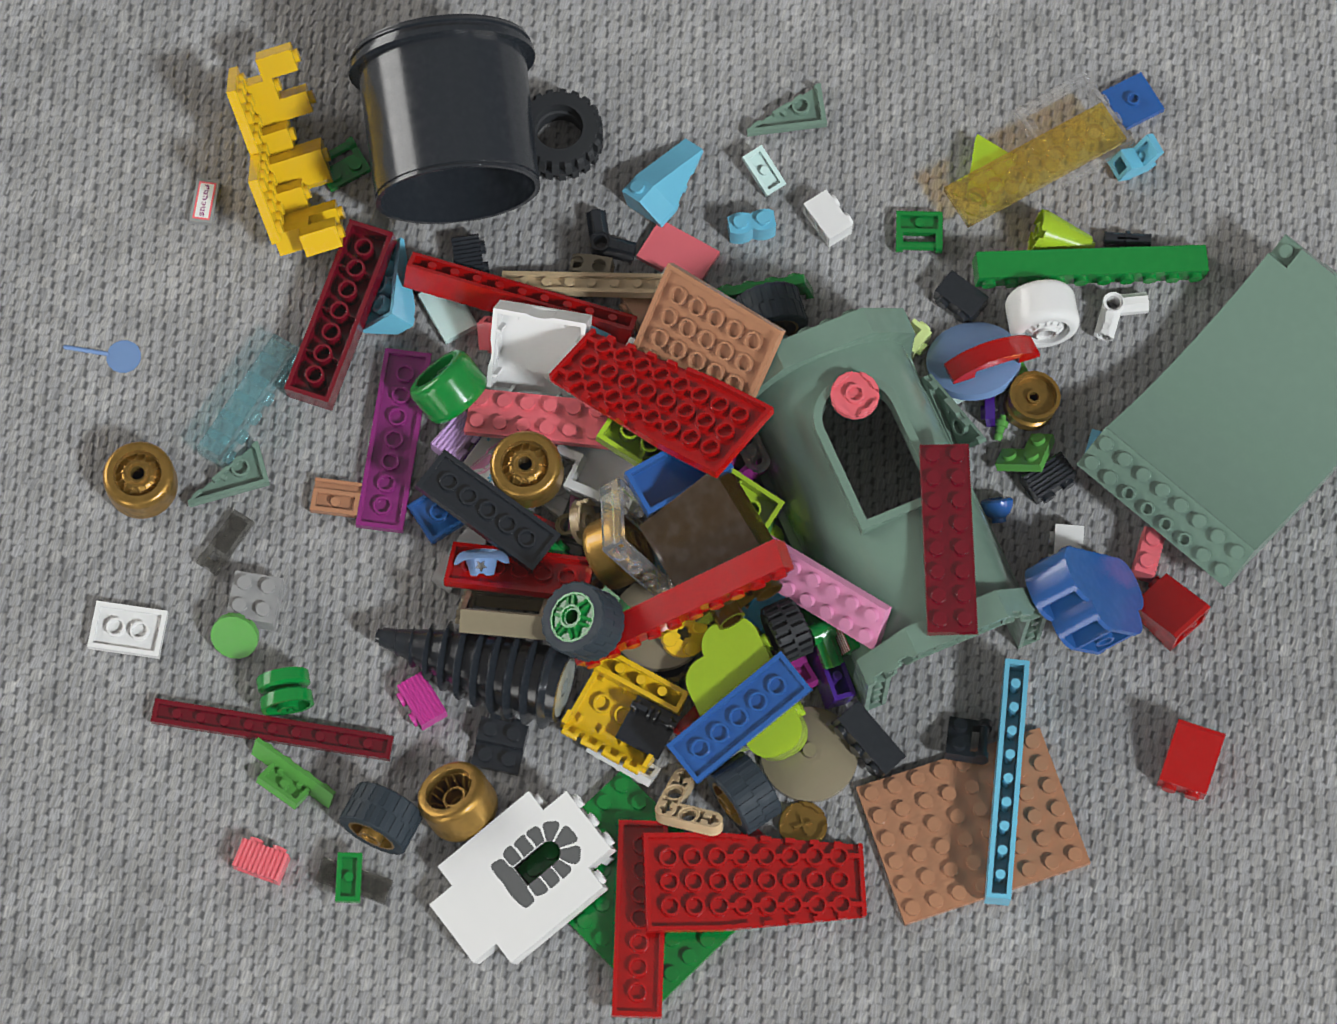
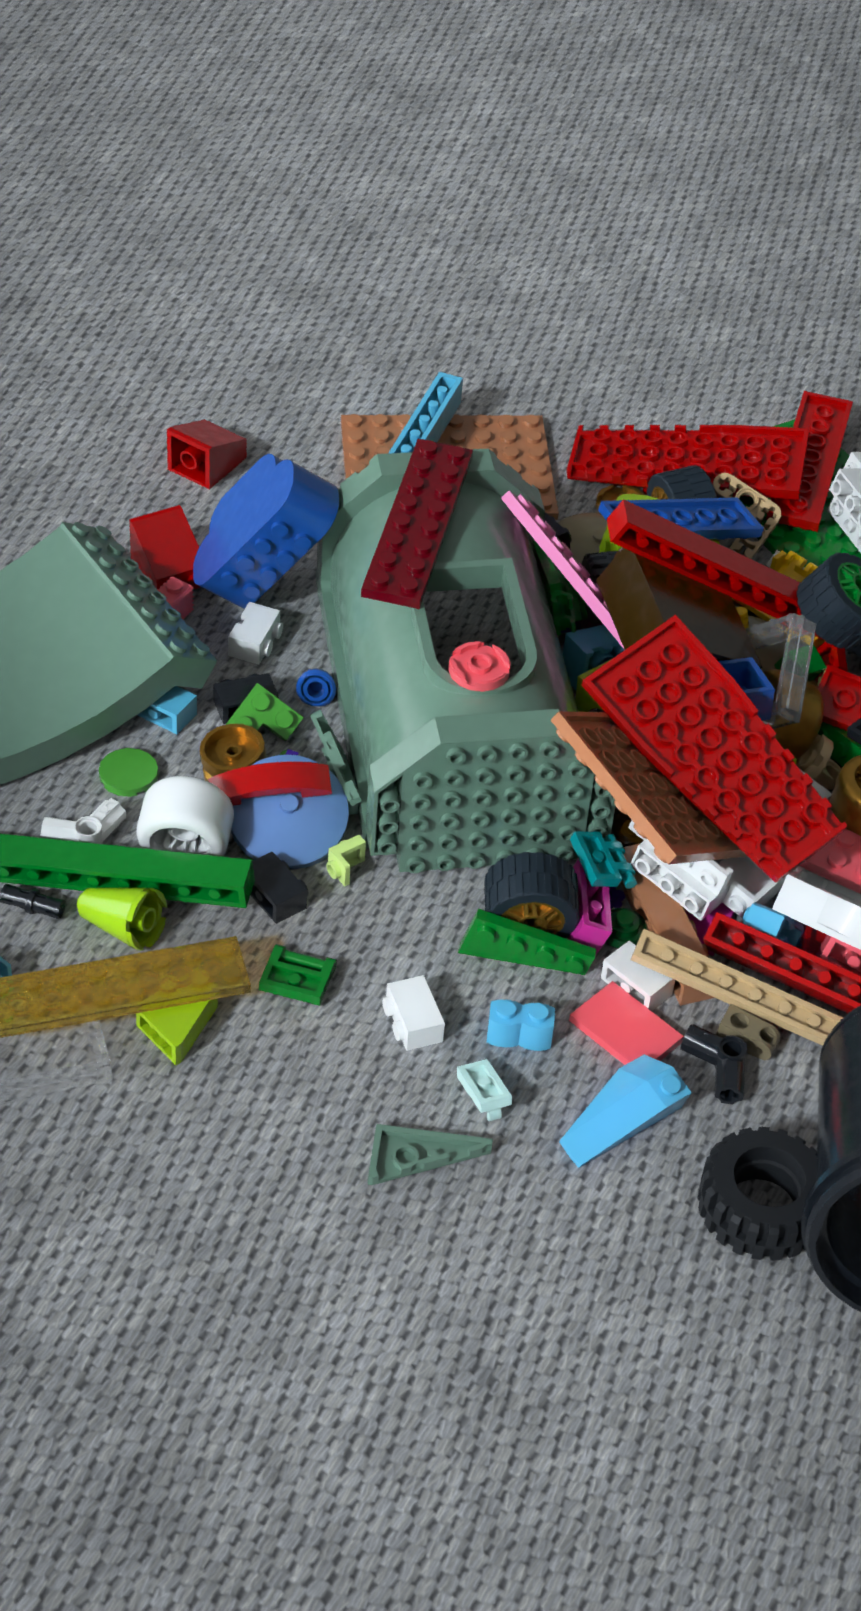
camera: 170 degrees left, 25 degrees down
(1110, 382) = (128, 771): none -> bright green tile

